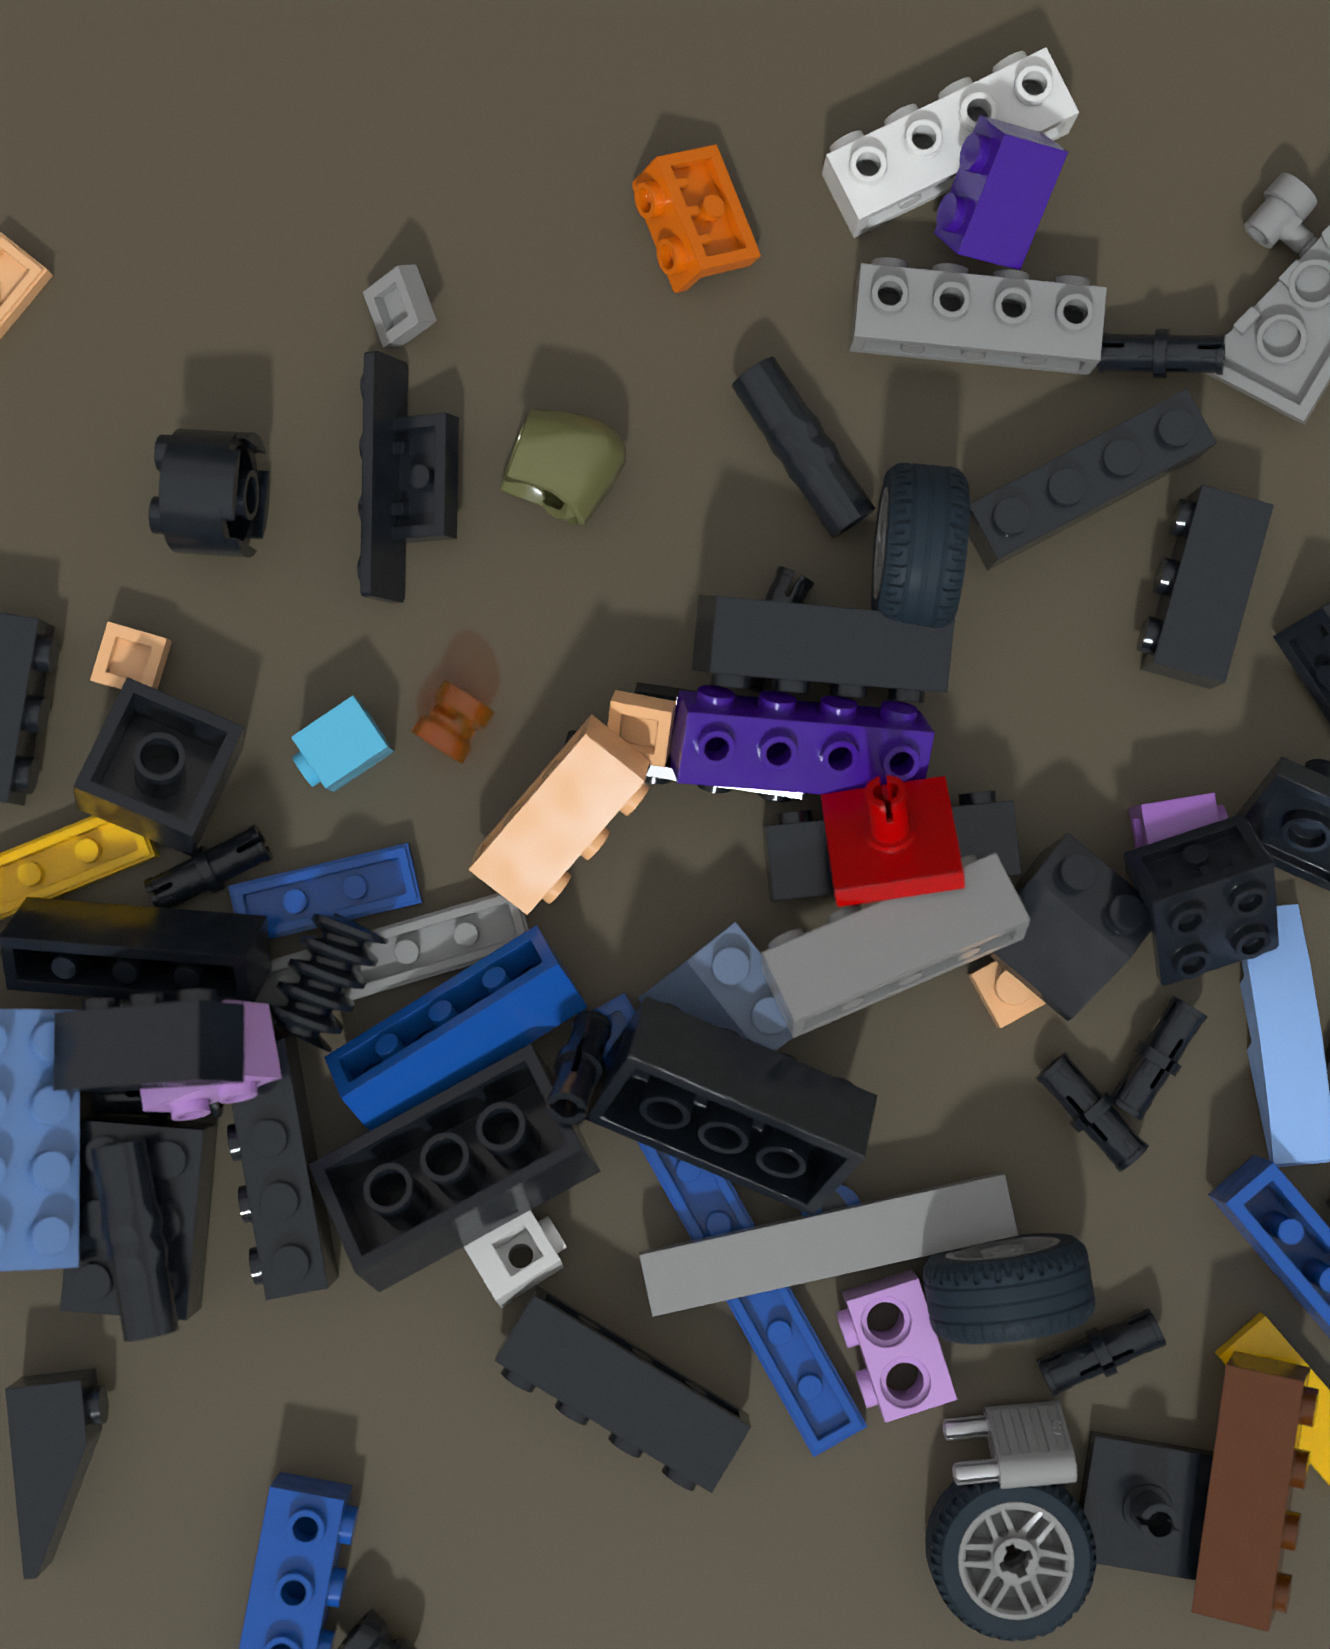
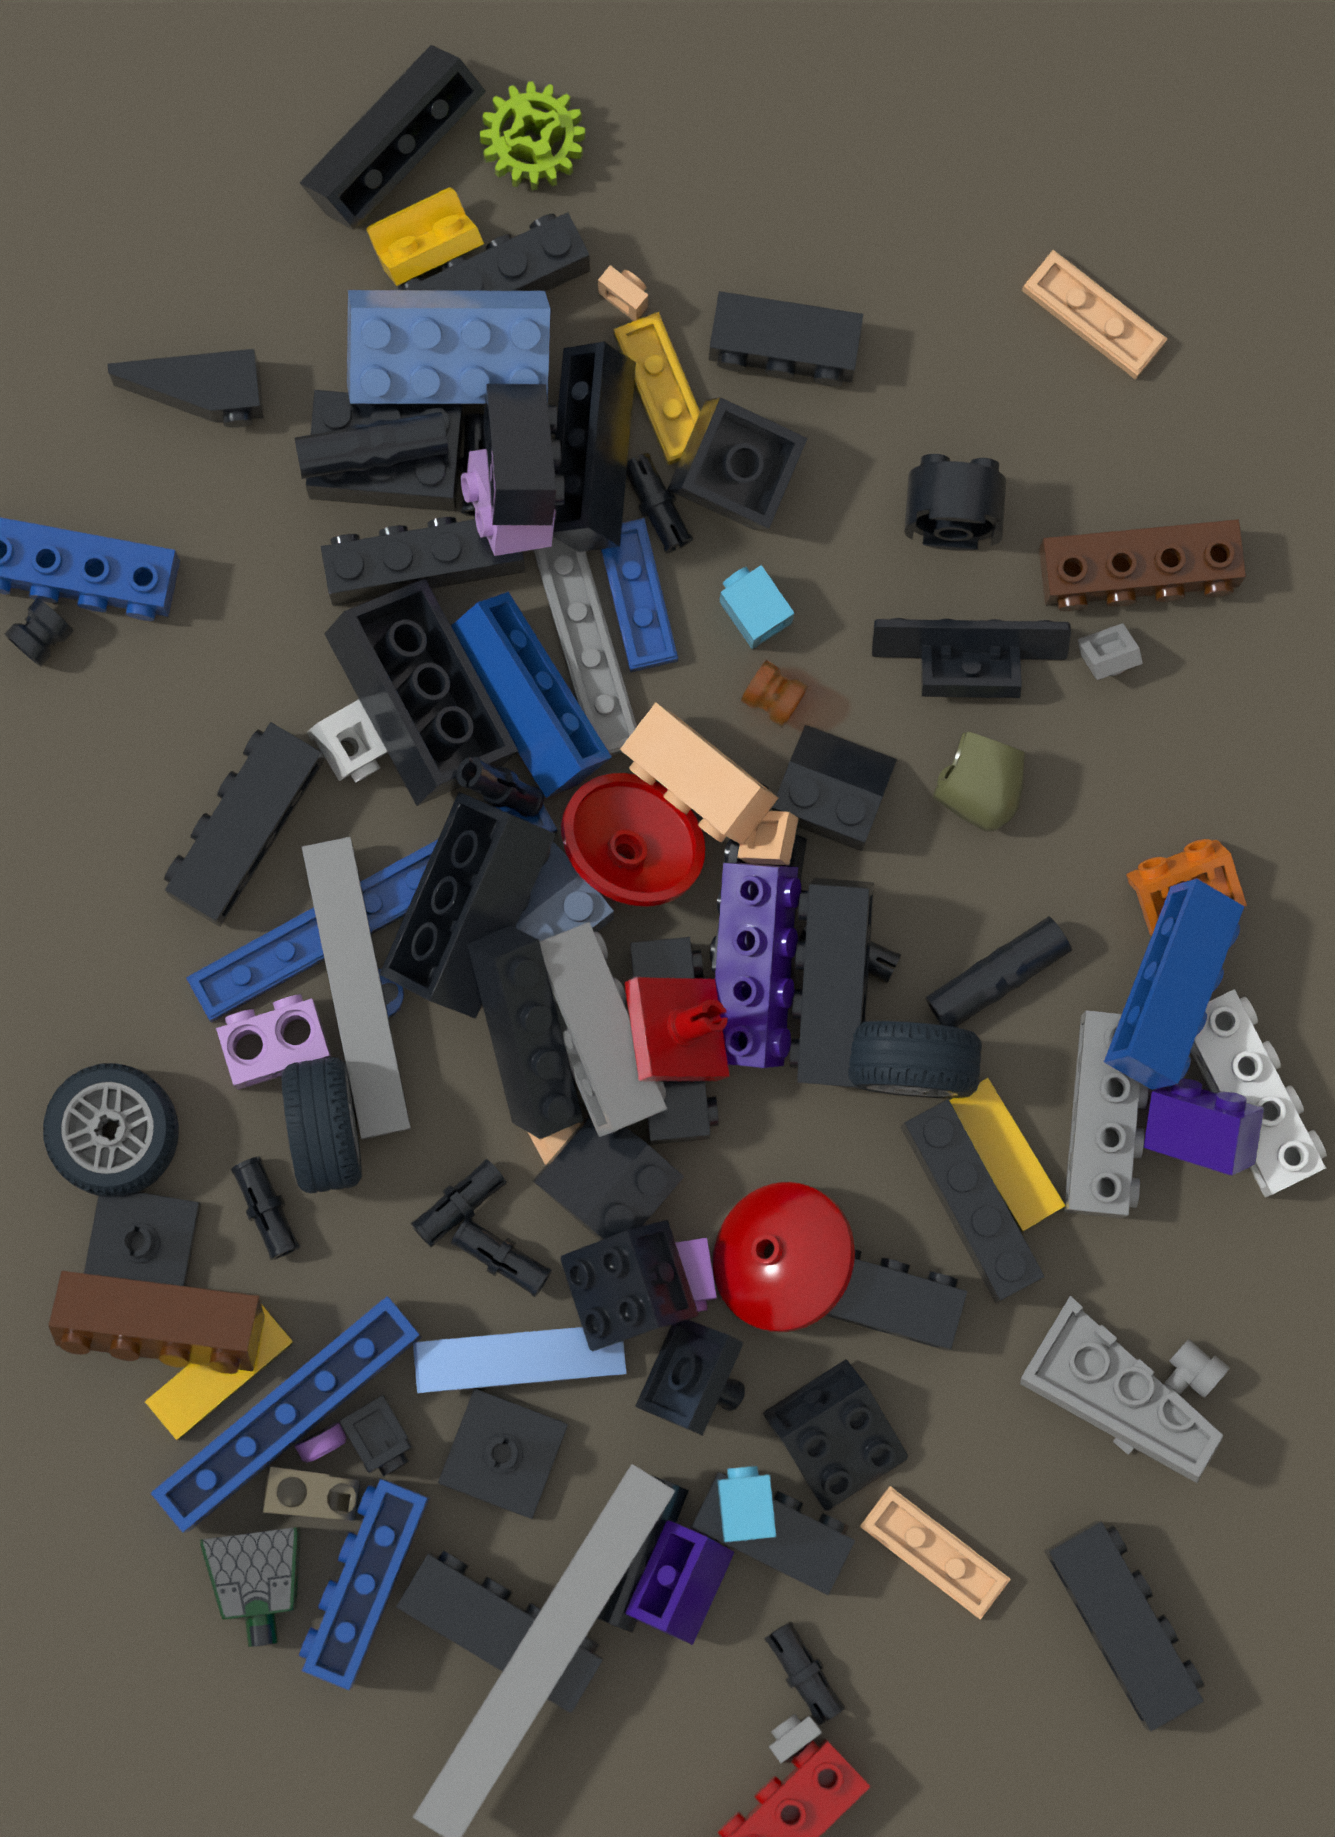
camera: 90 degrees right, 5 degrees down
(131, 655) = (826, 441): light nougat plate -> none
(288, 264) = (1142, 563): none -> reddish brown brick
(324, 979) = (570, 591): black piece -> none
(570, 647) = (834, 787): none -> black slope
(610, 900) = (632, 819): none -> red dish
(828, 220) = (1175, 984): none -> blue brick
(892, 1033) = (525, 1031): none -> black brick
(1025, 1444) = (194, 1139): light grey piece -> none
(1032, 436) = (1007, 1156): none -> yellow tile
(1154, 675) = (808, 1263): none -> red dish
(1163, 353) = (1077, 1265): black pin -> none

